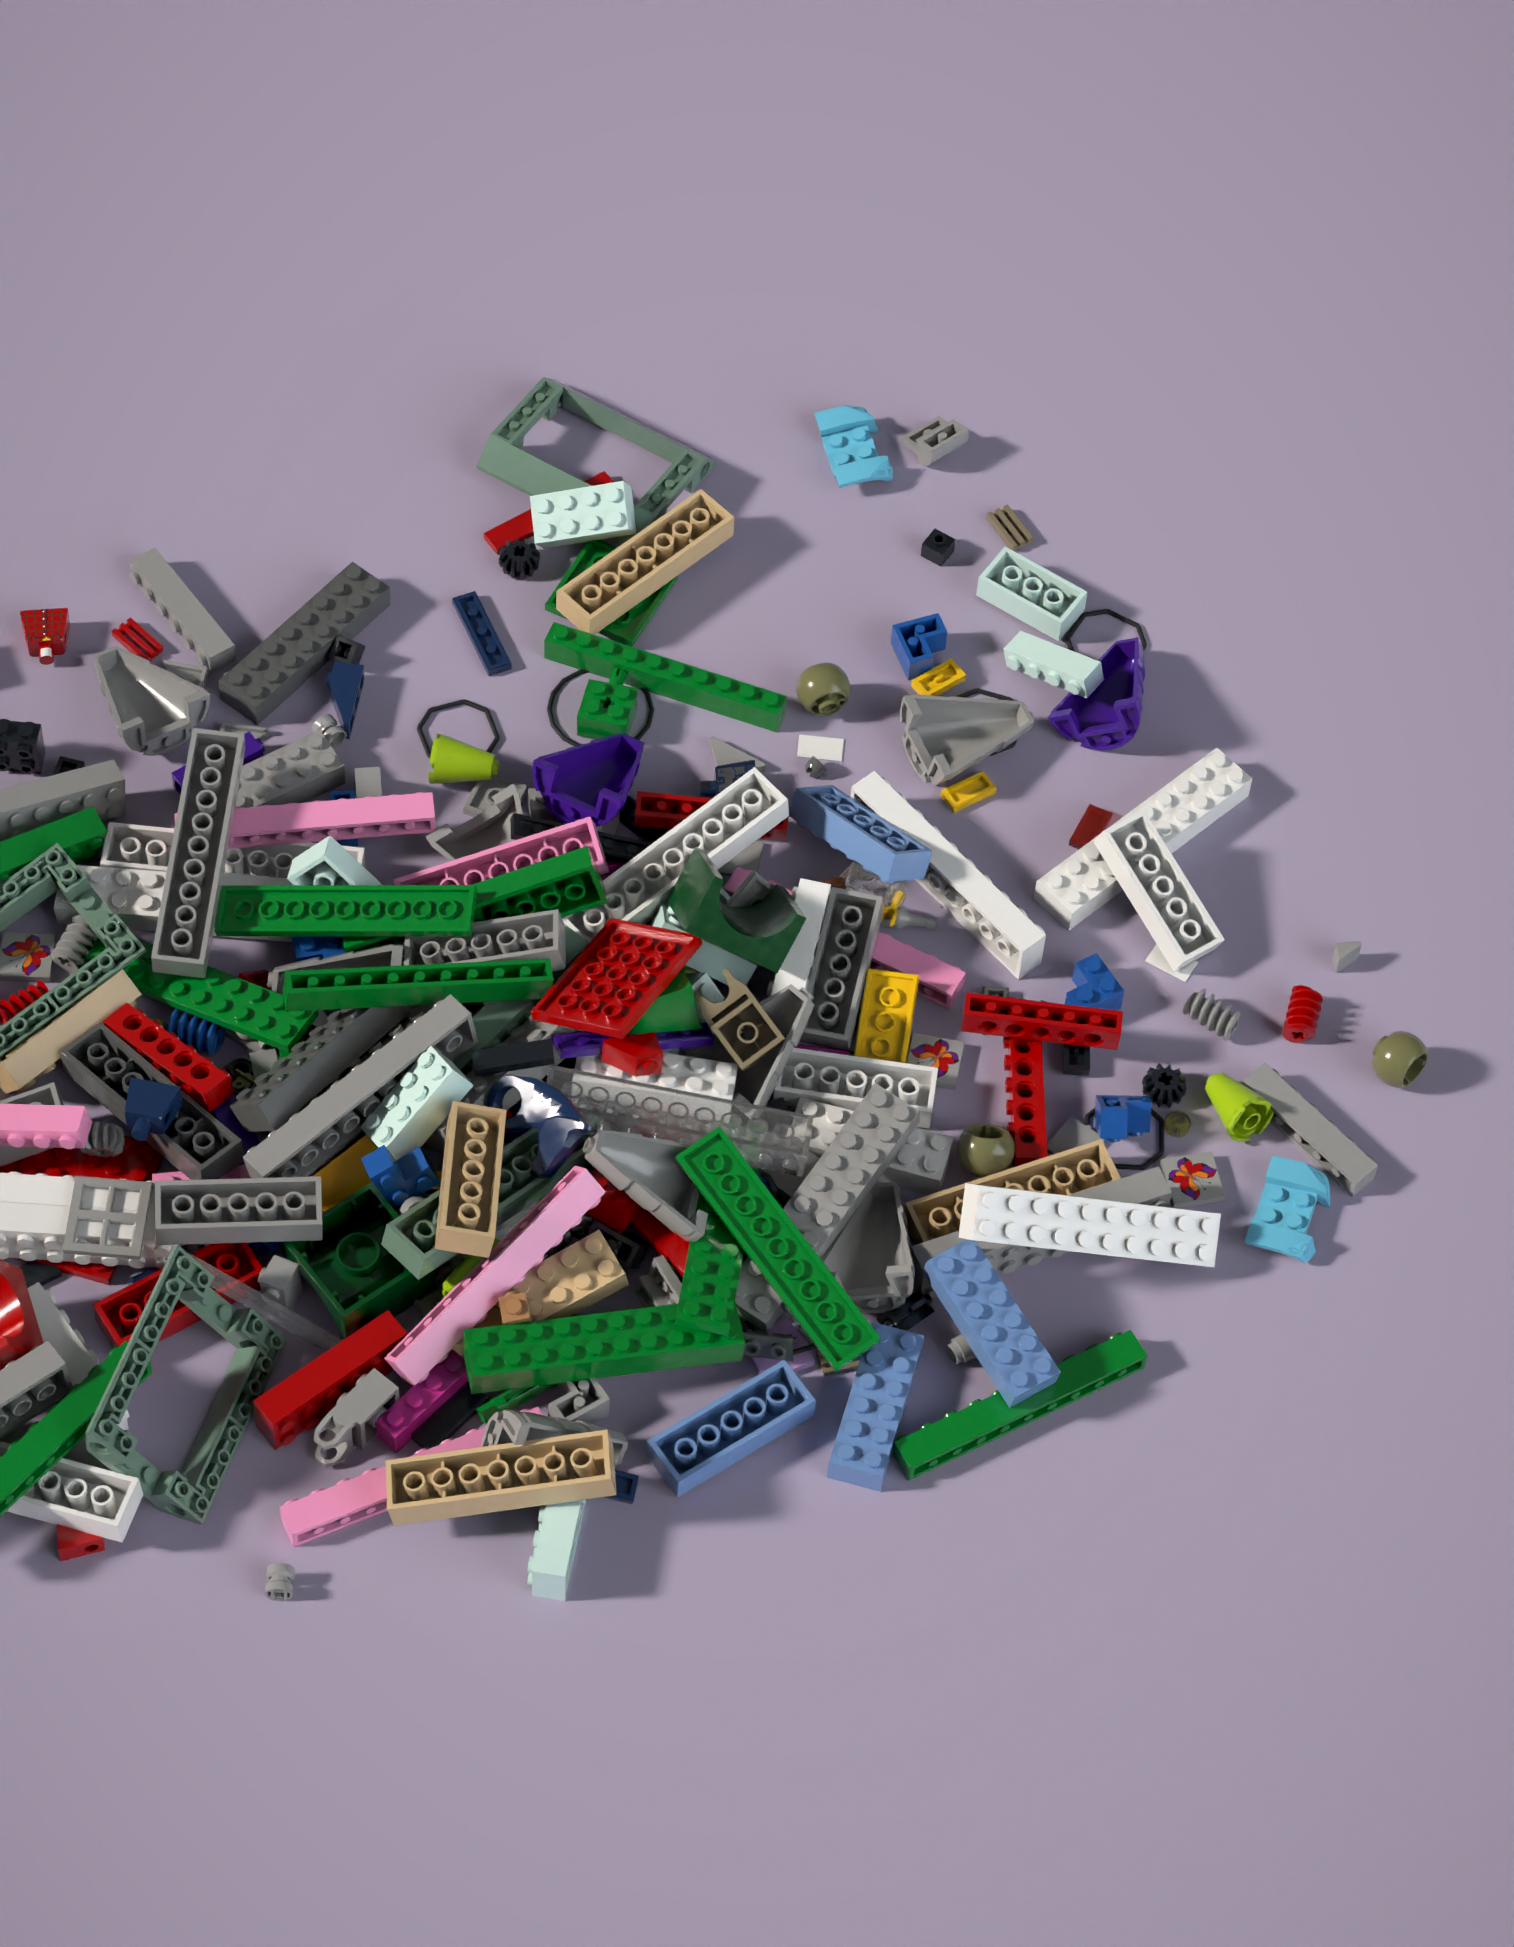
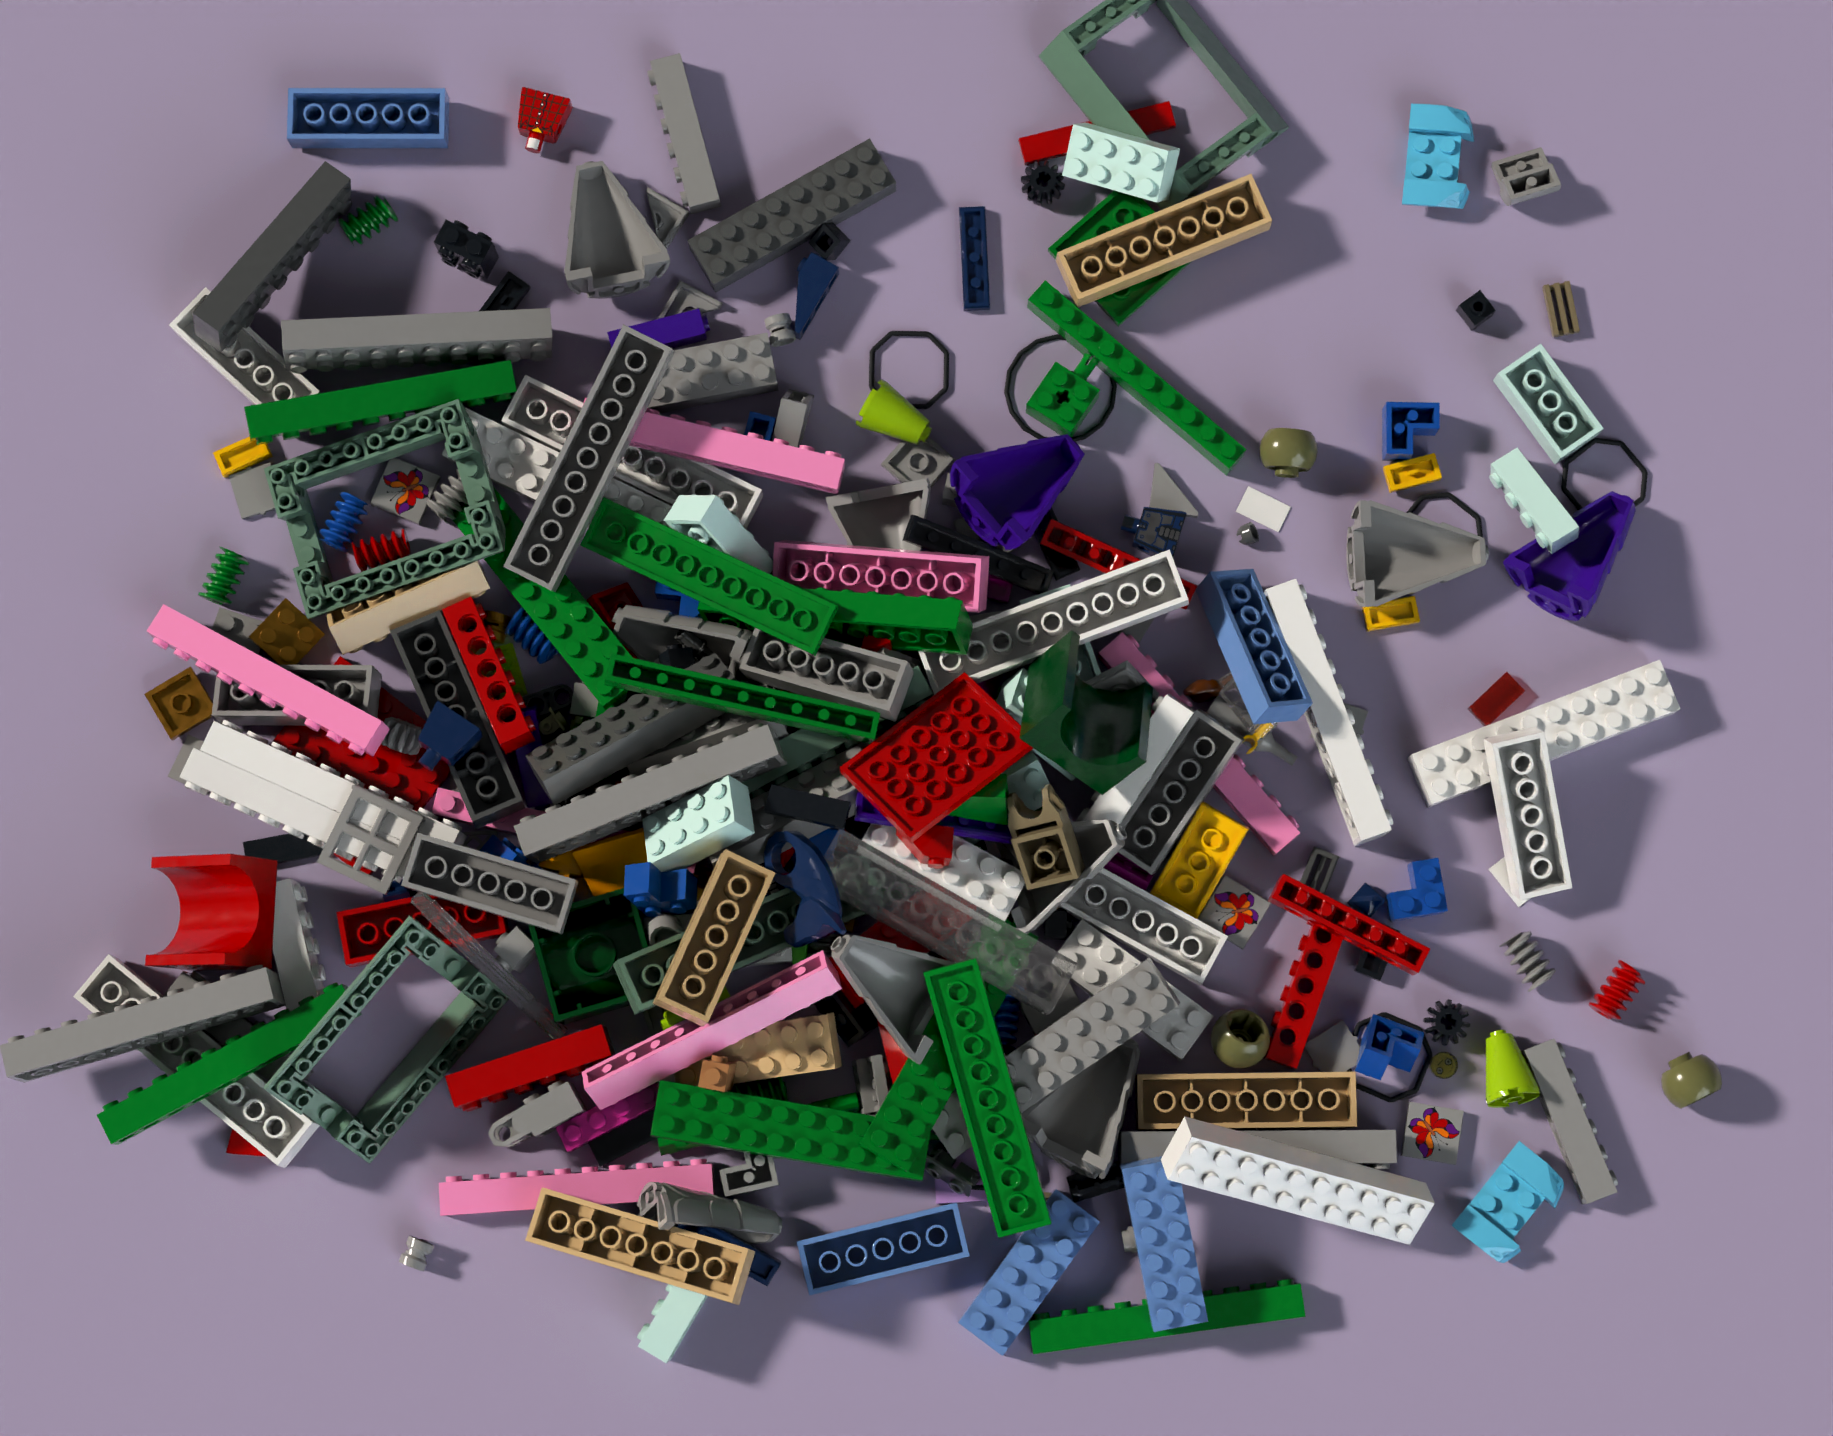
camera: 25 degrees right, 25 degrees up
(127, 629) = (622, 134): red tile -> none
(1345, 954) = (1688, 936): light grey slope -> none

